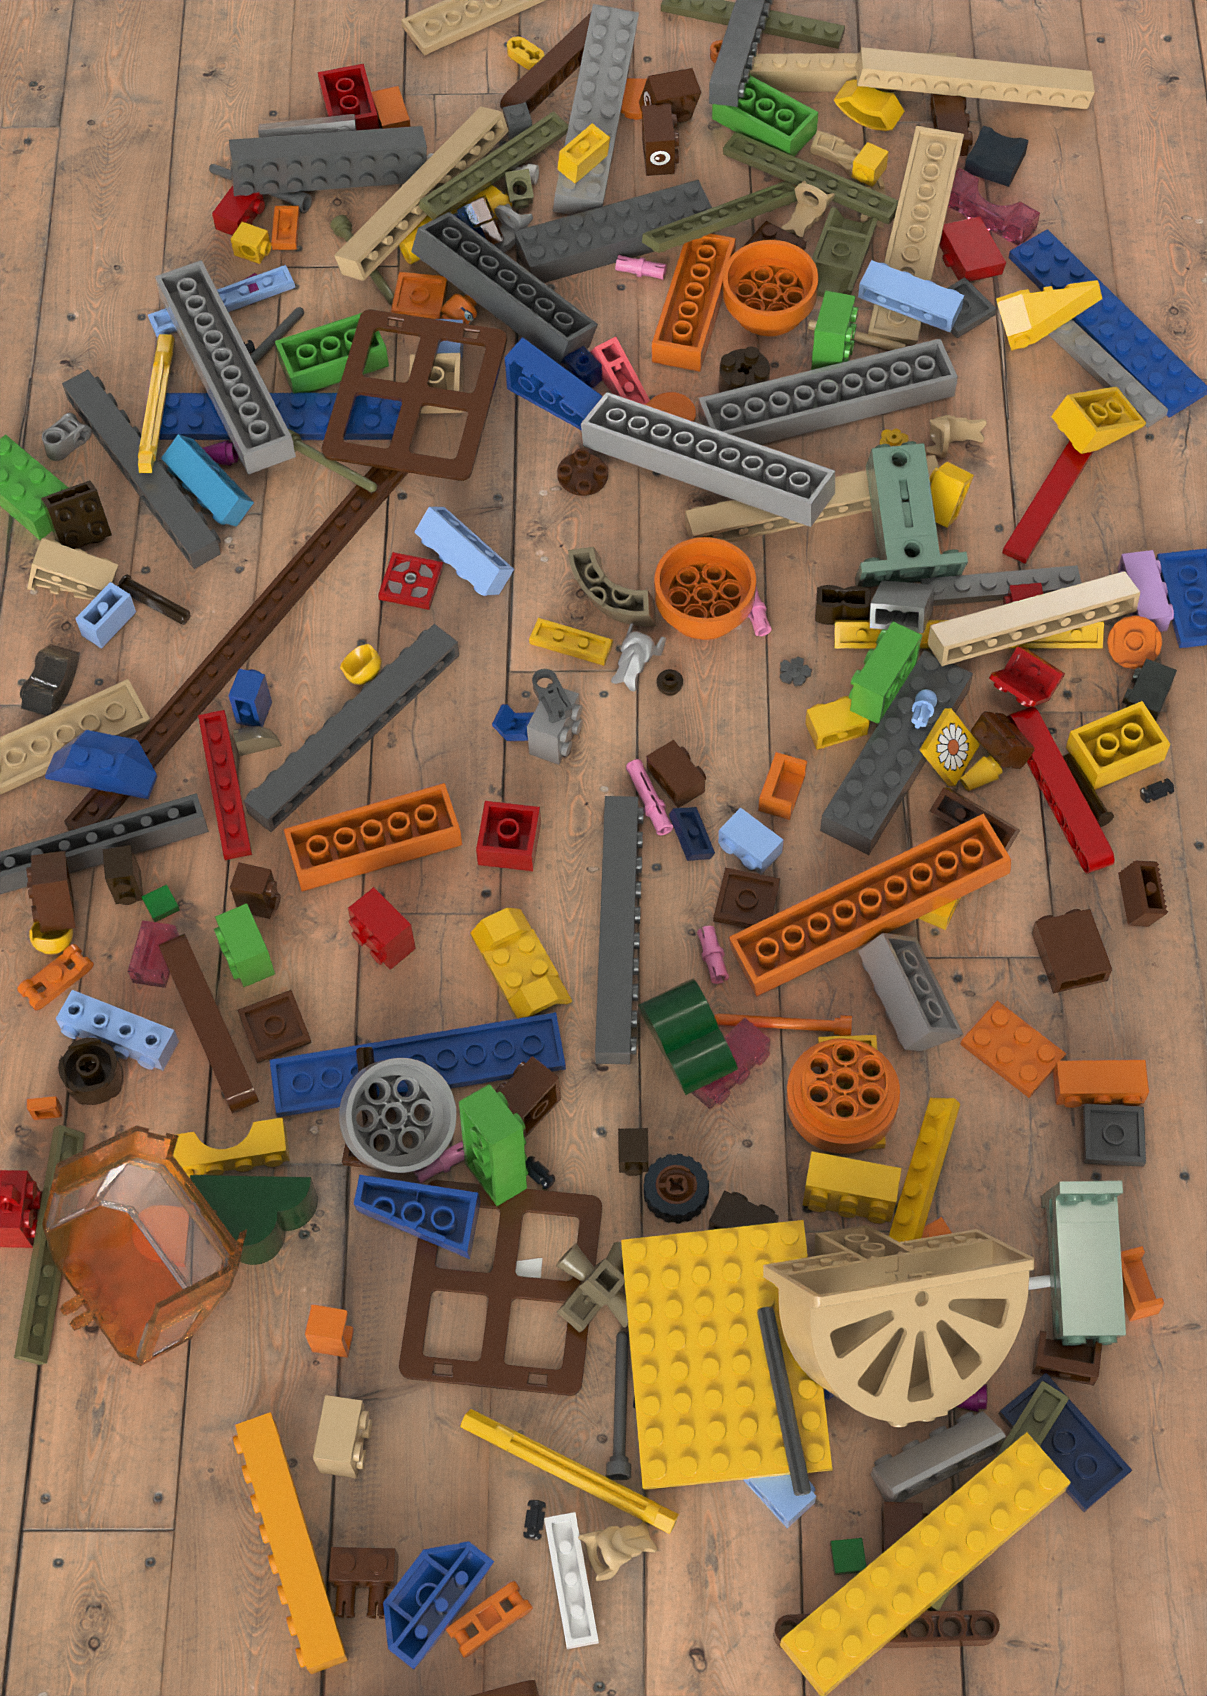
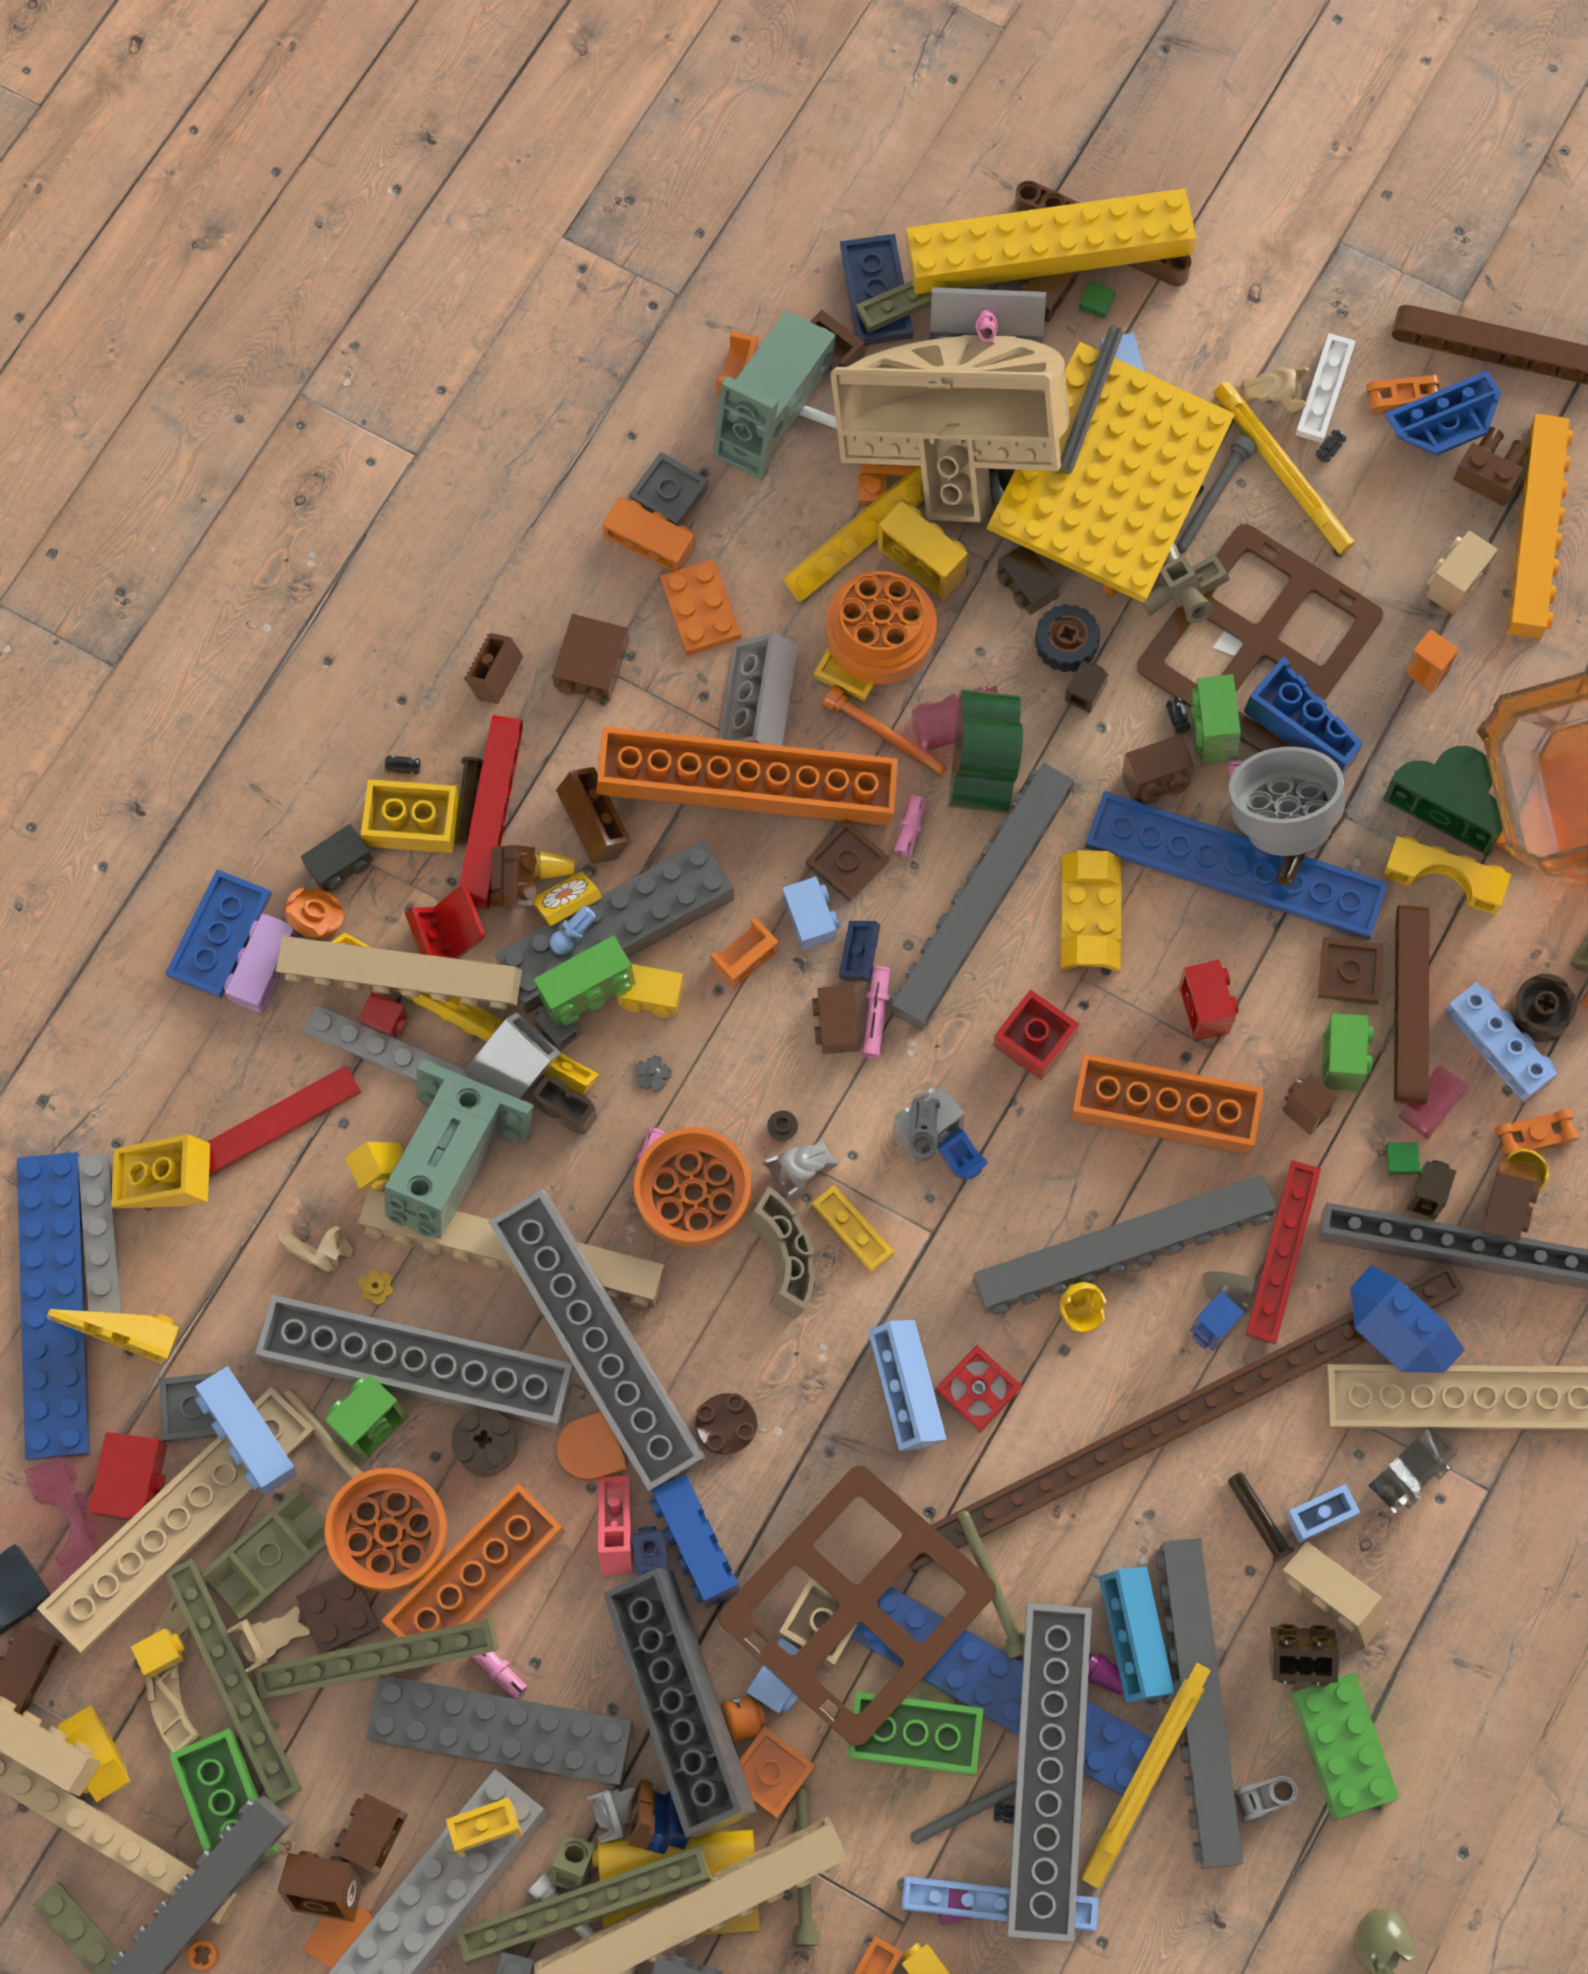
camera: 150 degrees left, 10 degrees up
(927, 1420) = (990, 327): none -> bright pink pin

